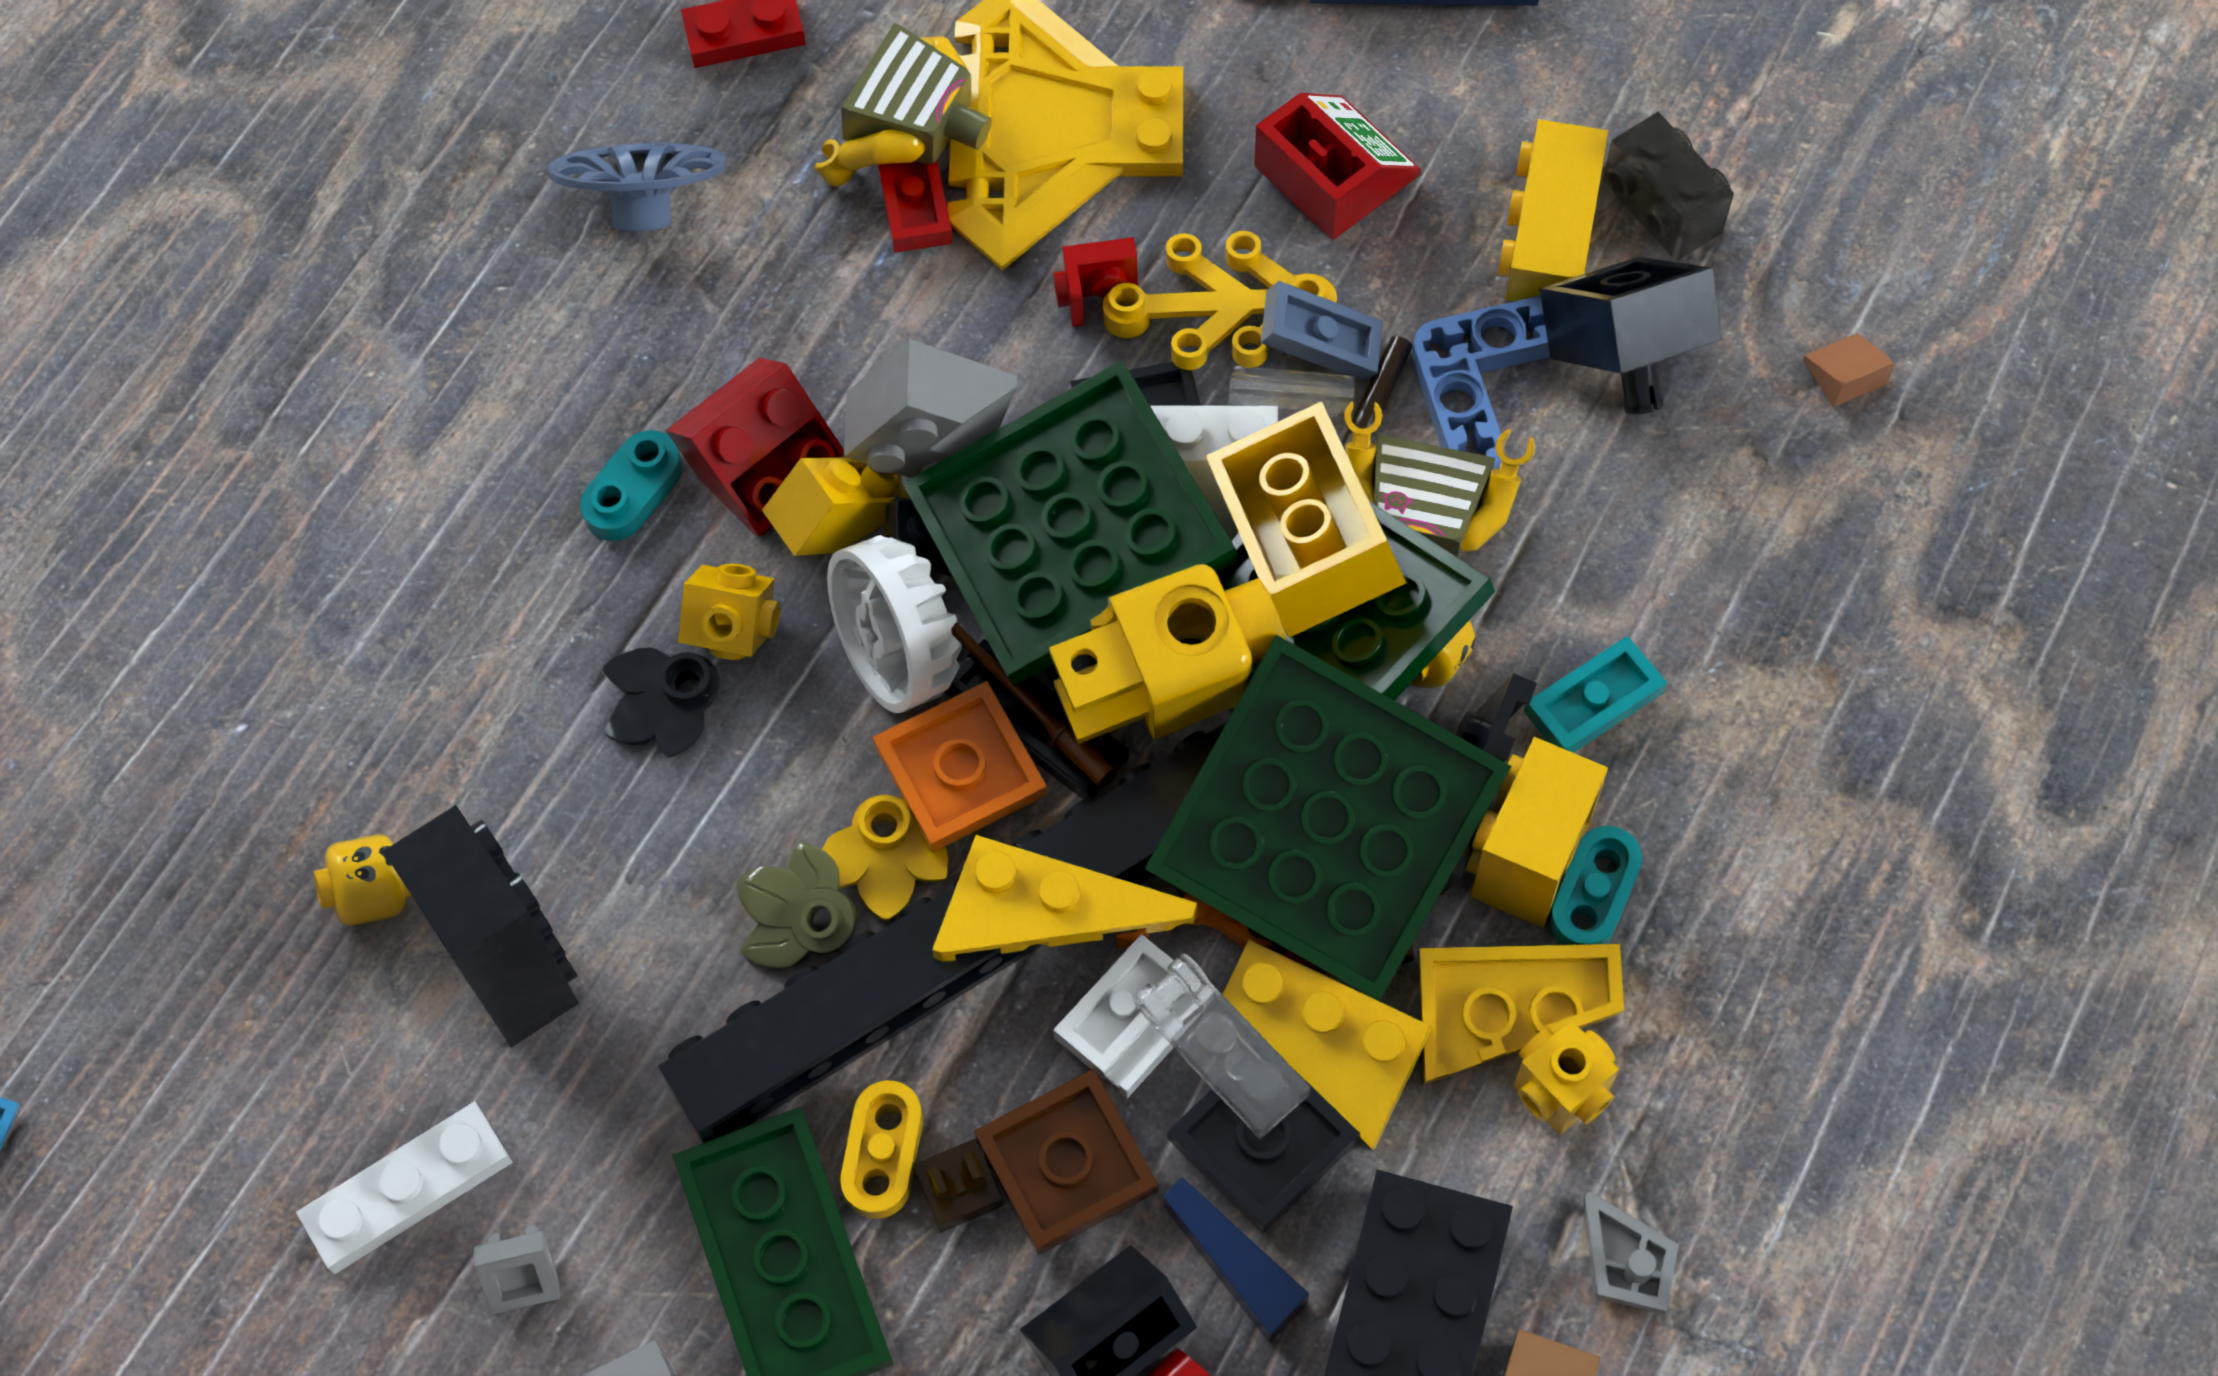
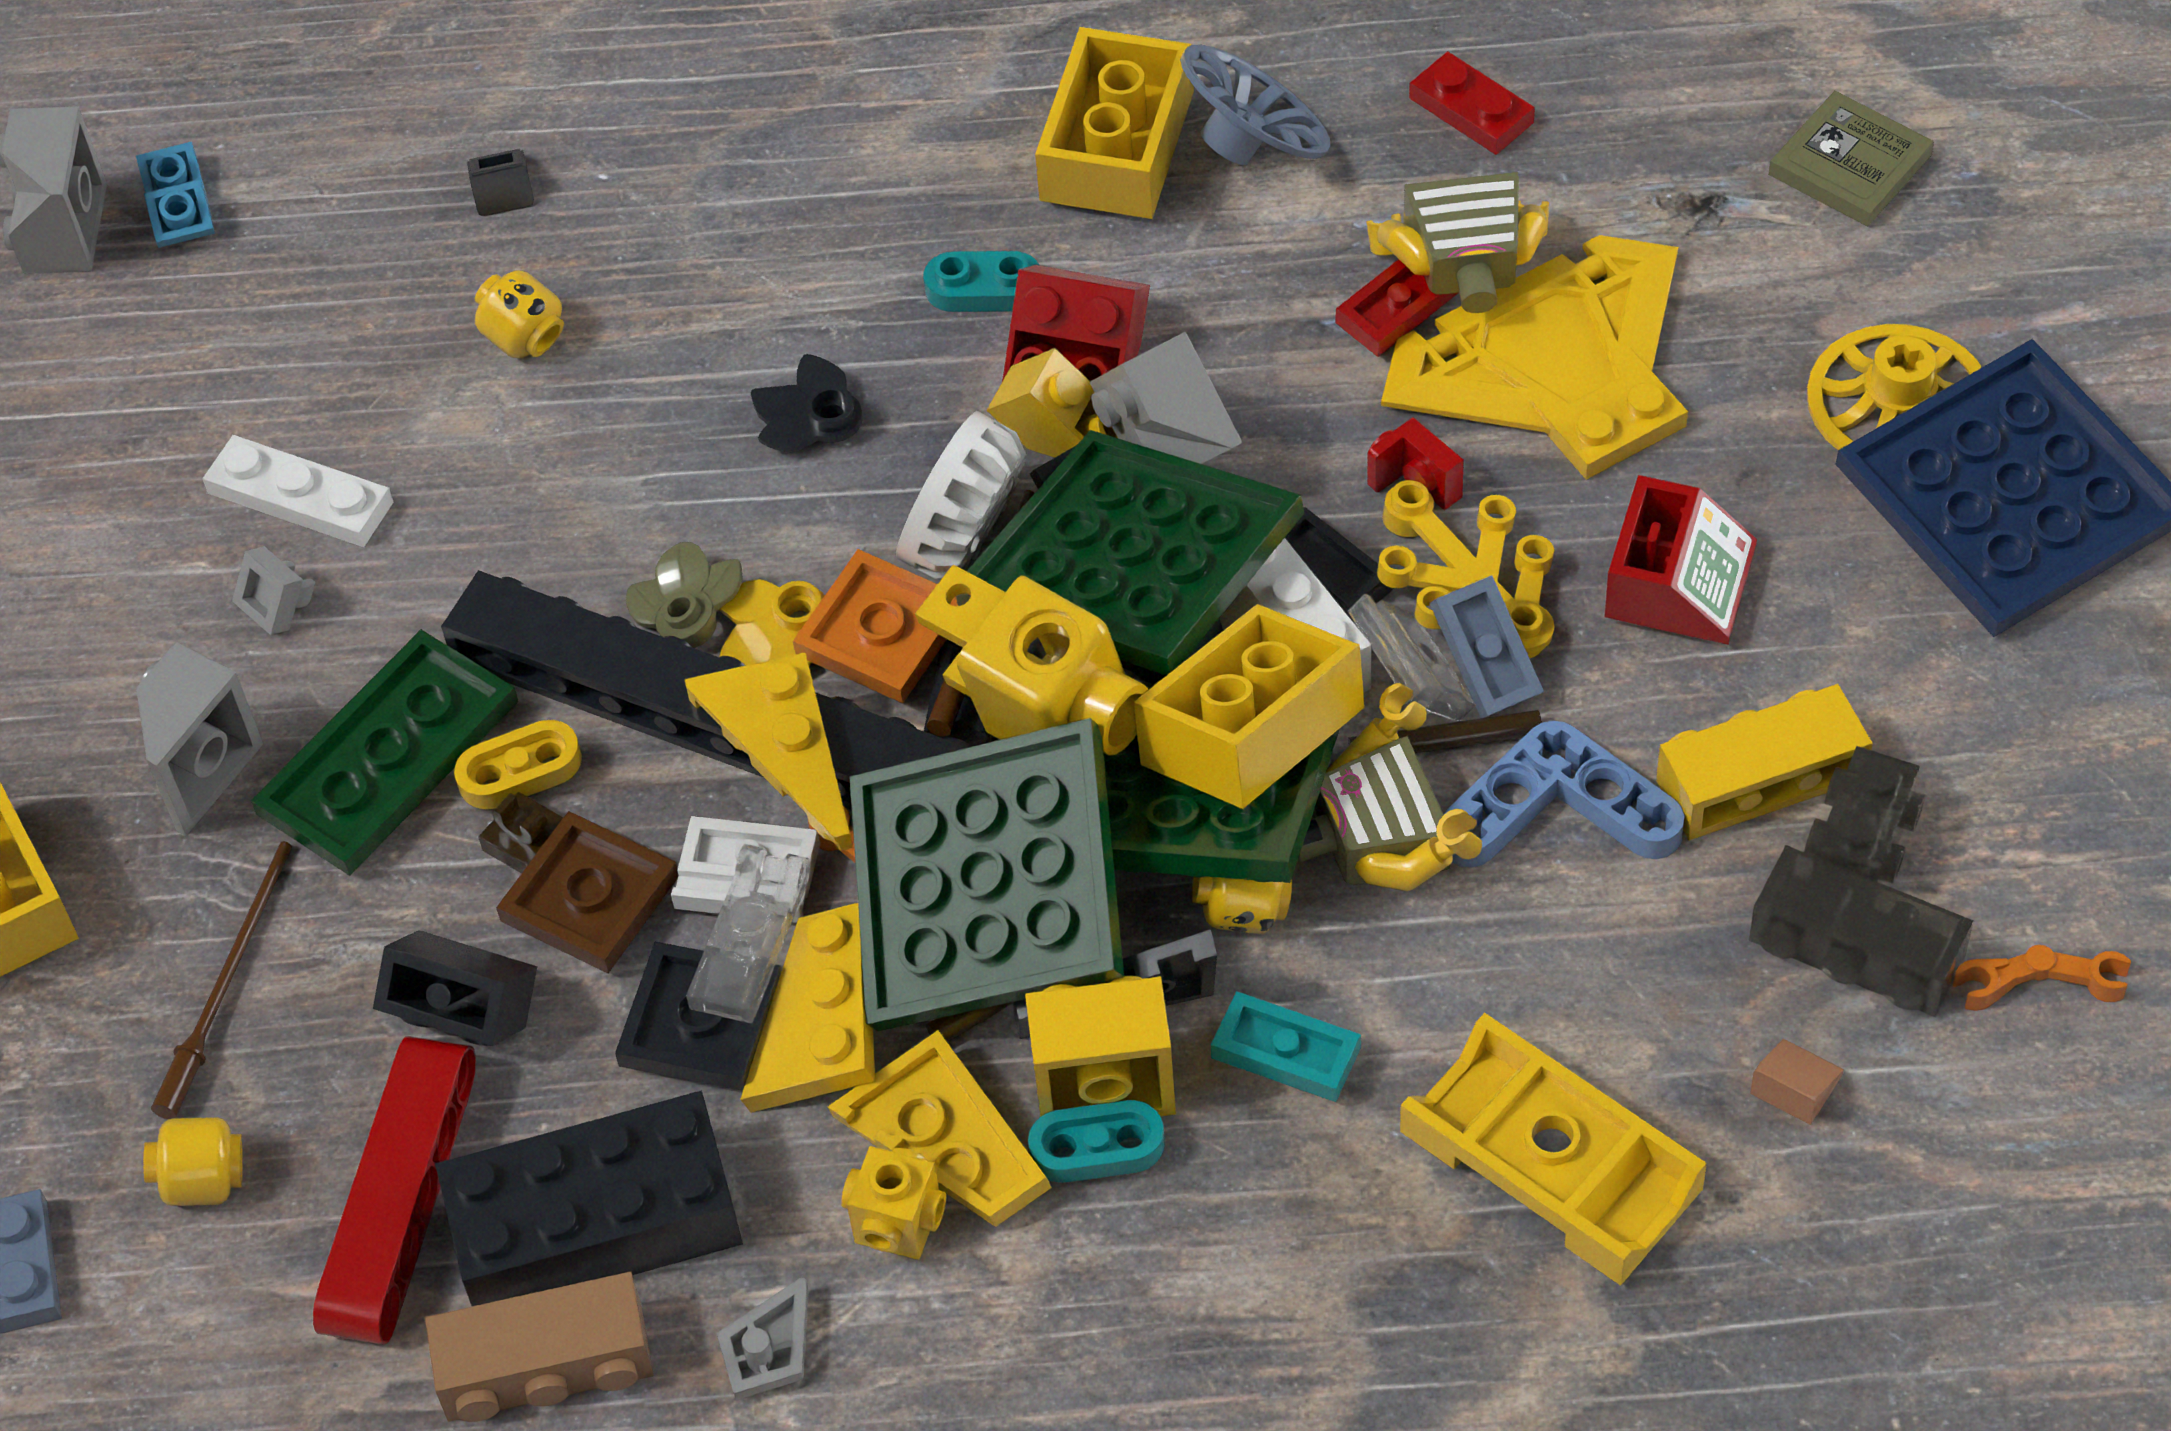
camera: 60 degrees right, 10 degrees down
(176, 815) = (500, 182): none -> black slope
(486, 922) = (493, 379): black brick -> none
(562, 282) = (1114, 123): none -> yellow brick
(728, 610) = (904, 395): yellow brick -> none
(1248, 1273) = (578, 1061): dark blue piece -> none
(1631, 319) = (1669, 858): black brick -> none
(1758, 585) = (1606, 1191): none -> yellow piece
(1765, 238) = (1860, 931): none -> clear smoke brick
(1842, 183) = (2039, 964): none -> orange piece

